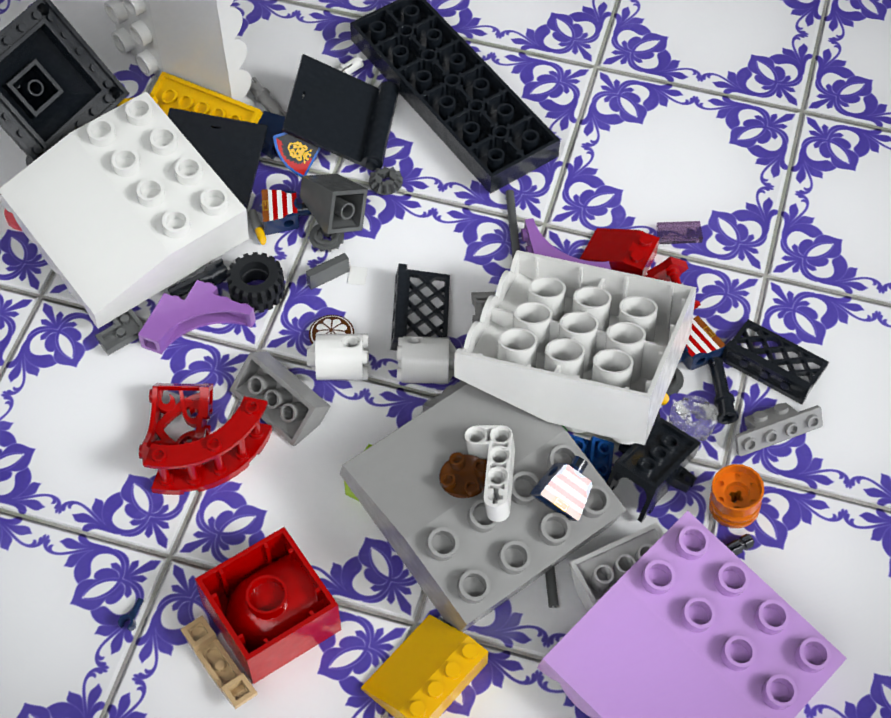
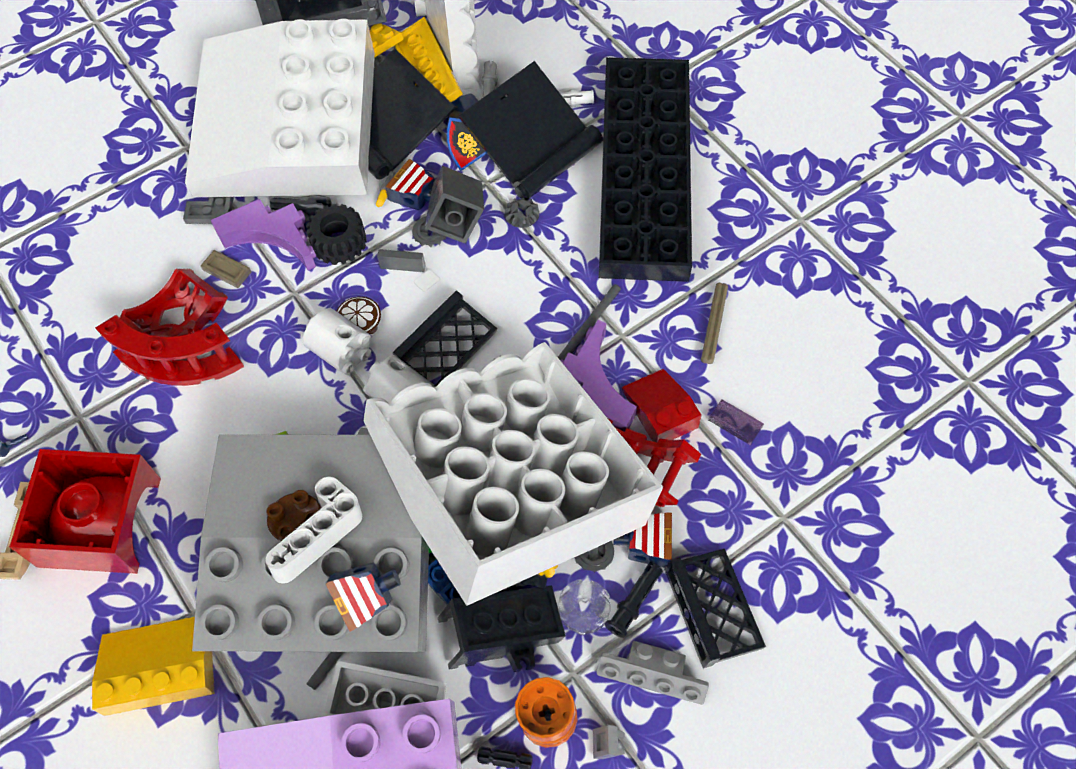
camera: 40 degrees right, 5 degrees up
(181, 368) = (226, 269): none -> dark tan tile
(291, 405) = (268, 342): light grey slope -> none
(603, 174) = (714, 323): none -> dark tan axle
(787, 490) = (606, 742): none -> light grey tile

